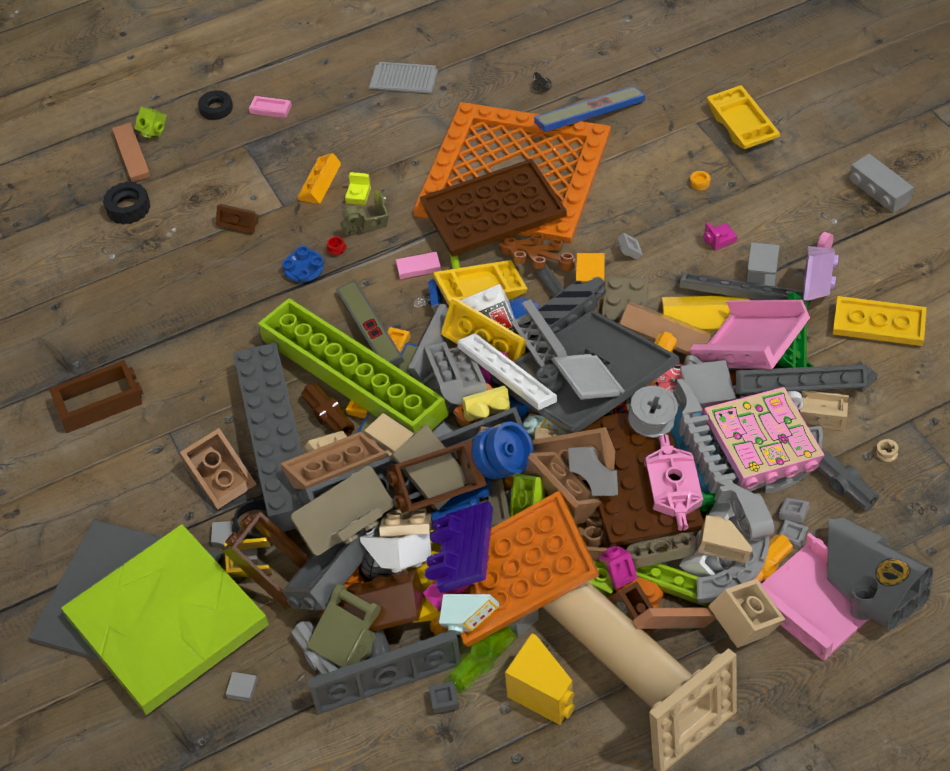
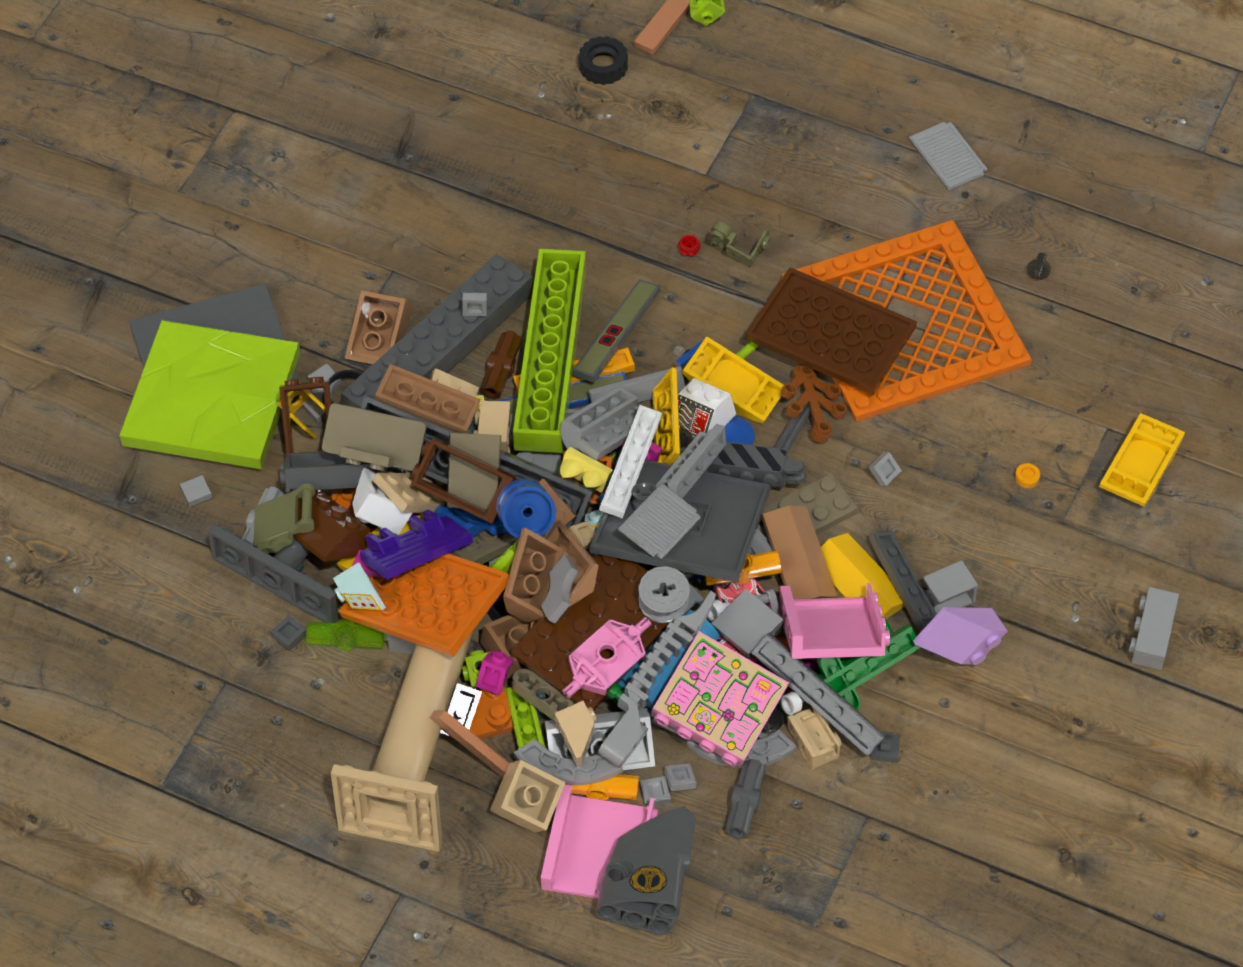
camera: 50 degrees right, 5 degrees up
(100, 409) = (360, 168): reddish brown window -> none
(218, 112) = (778, 27): black tyre -> none
(236, 218) = (654, 152): reddish brown plate -> none
(270, 107) = (814, 80): bright pink tile -> none
(274, 383) = (474, 304): none -> light grey plate
(303, 265) = (646, 237): blue dish -> none
(319, 179) = (760, 179): light orange slope -> none
(358, 189) = (770, 216): neon yellow bracket -> none
(418, 265) = (722, 321): bright pink tile -> none
(540, 682) = (348, 686): yellow slope -> none
(589, 109) = (1035, 327): tile -> none
(590, 266) = (820, 457): light orange piece -> none
(719, 236) = (965, 533): dark pink bracket -> none
(825, 240) = (1030, 625): bright pink tile -> none
(880, 321) = (967, 724): yellow plate -> none
(882, 454) = (814, 807): tan bush -> none

